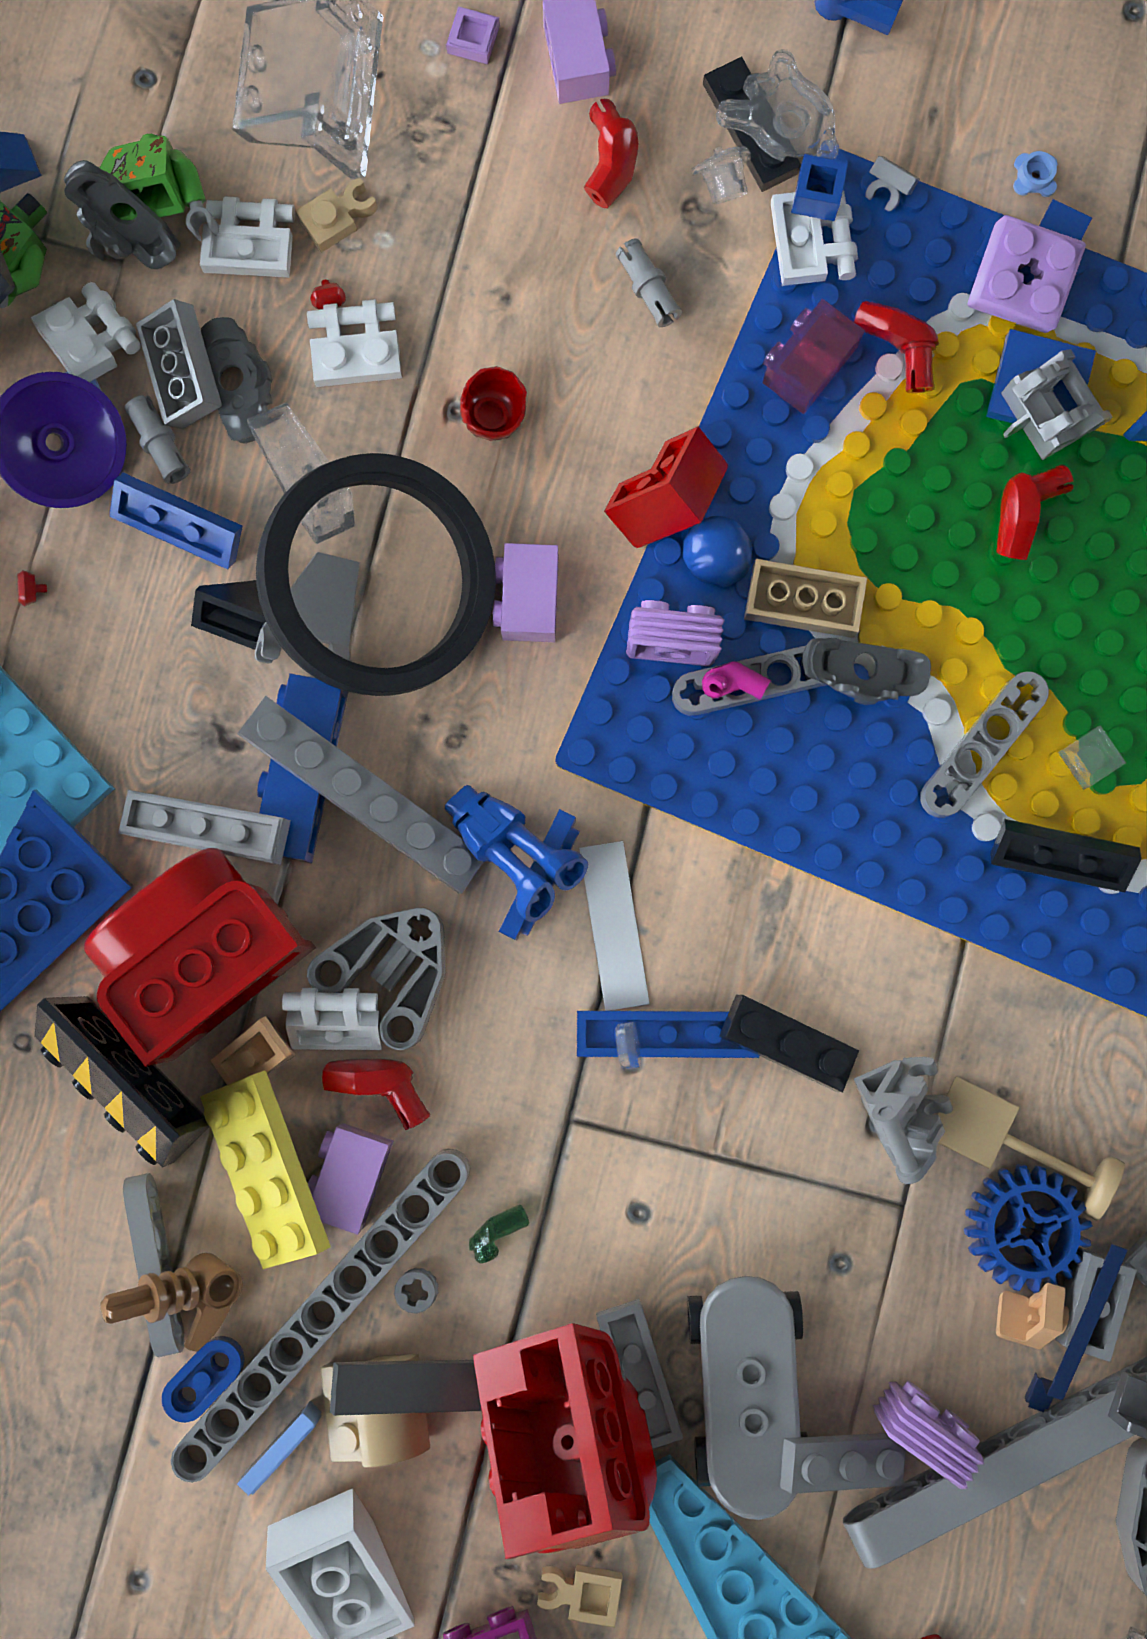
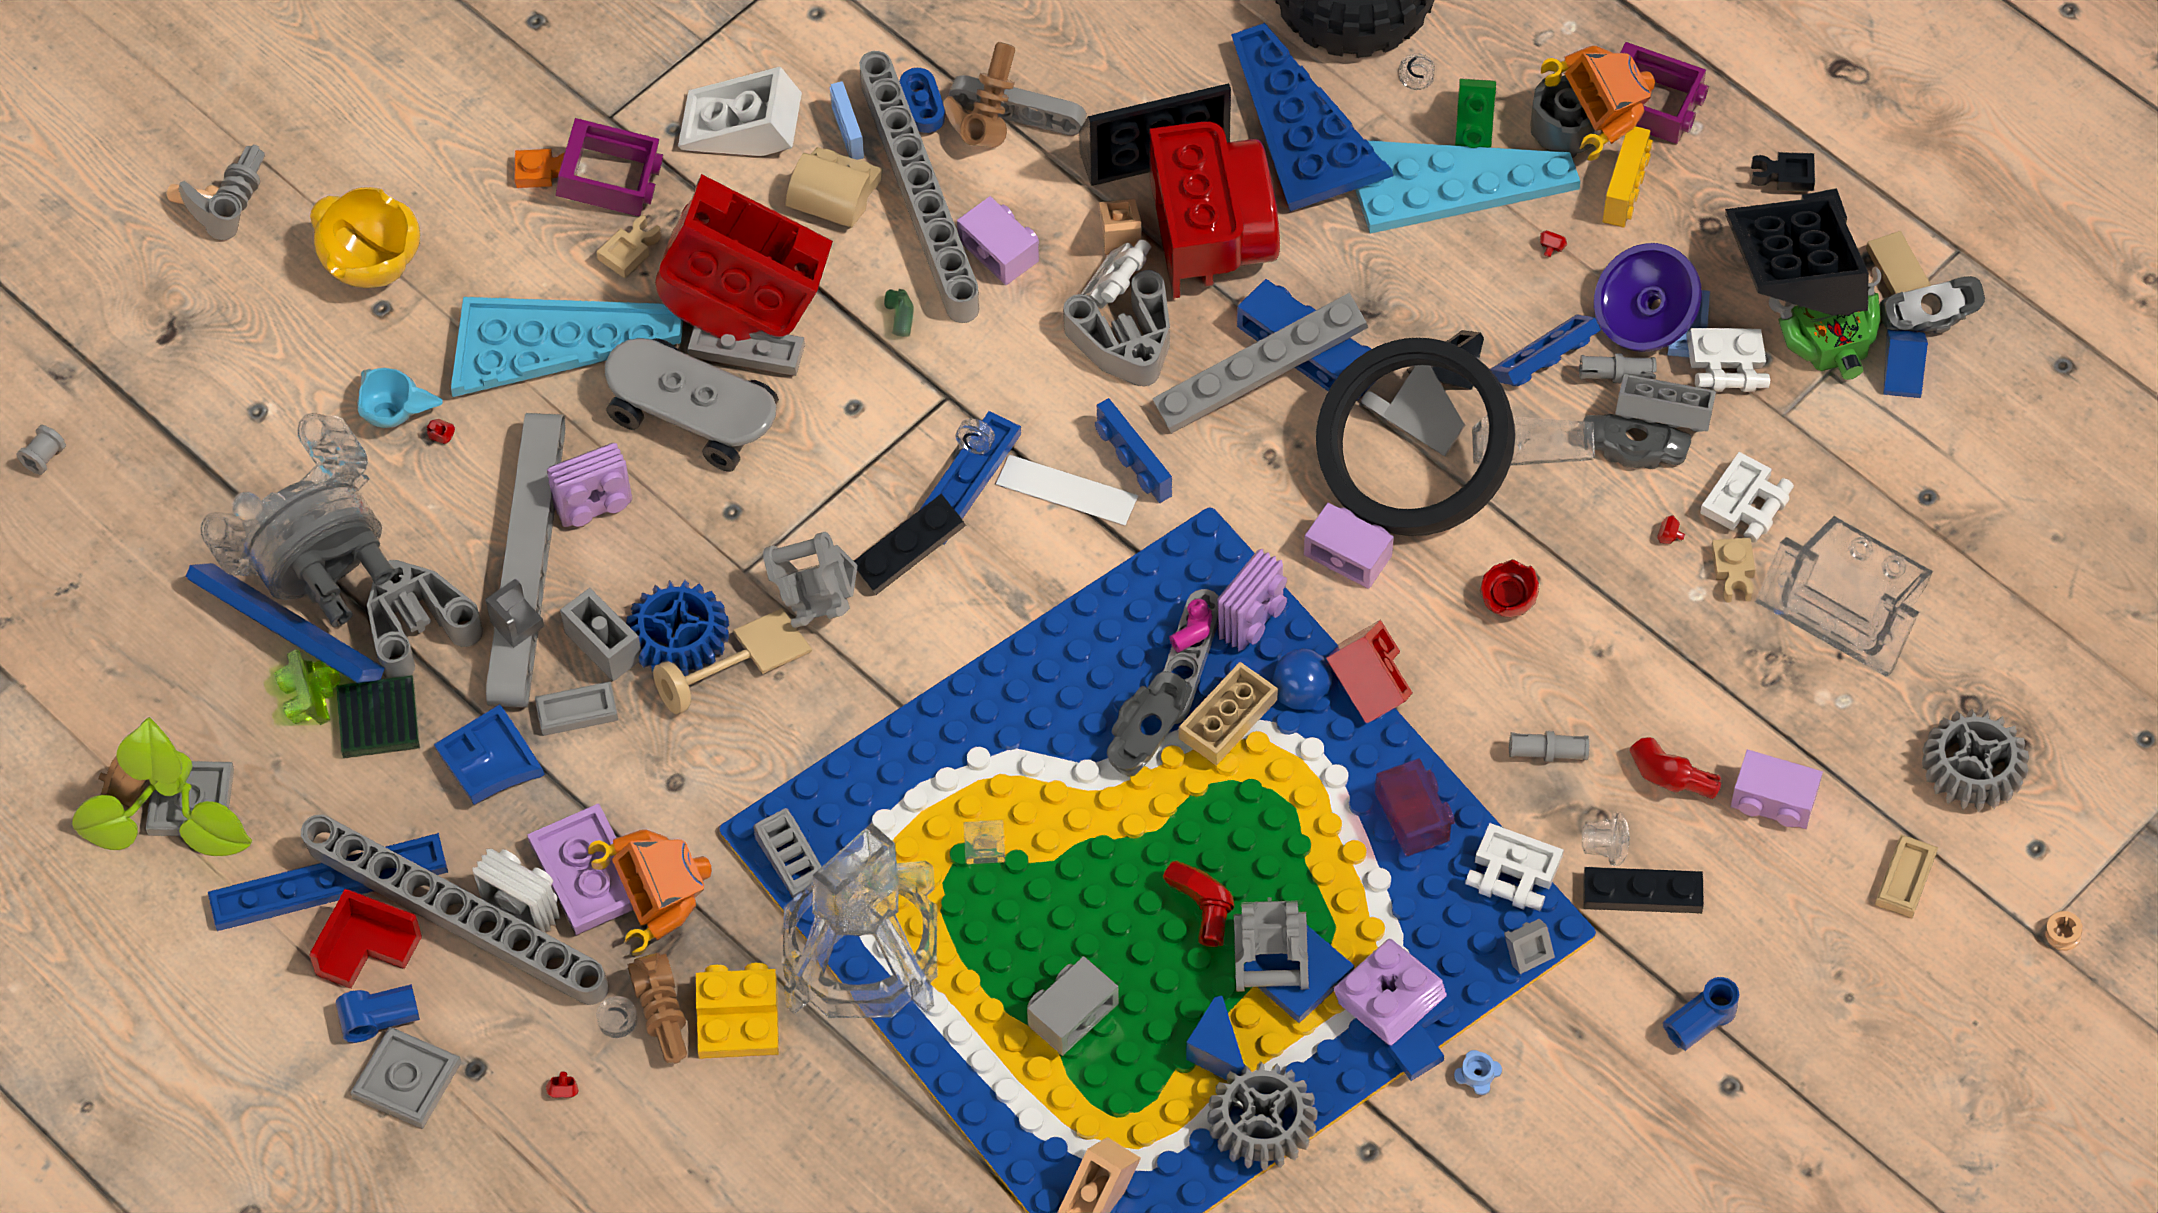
camera: 120 degrees right, 25 degrees down
(143, 236) = (1796, 405): dark grey piece -> none
(161, 180) = (1820, 441): bright green torso -> none
(204, 826) = (1301, 261): light grey tile -> none
(264, 1171) = (1037, 189): light yellow plate -> none
(356, 356) = (1609, 524): white plate -> none
(381, 1078) = (1054, 289): red arm -> none
(403, 1296) = (894, 256): light grey bush -> none
(404, 1387) = (842, 190): dark grey tile -> none
(473, 35) = (1834, 731): lavender tile -> none
(490, 832) = (1183, 436): blue piece -> none
(784, 112) = (1629, 901): clear tile -> none
(819, 187) = (1540, 856): blue plate -> none
(841, 1463) = (612, 414): light grey plate -> none
(908, 335) = (1394, 885): red arm -> none
(980, 741) = (1038, 780): light grey beam -> none
(1032, 1319) = (619, 593): light nougat bracket -> none
(1042, 1390) = (563, 580): dark blue piece -> none
(1065, 855) = (924, 783): black plate -> none

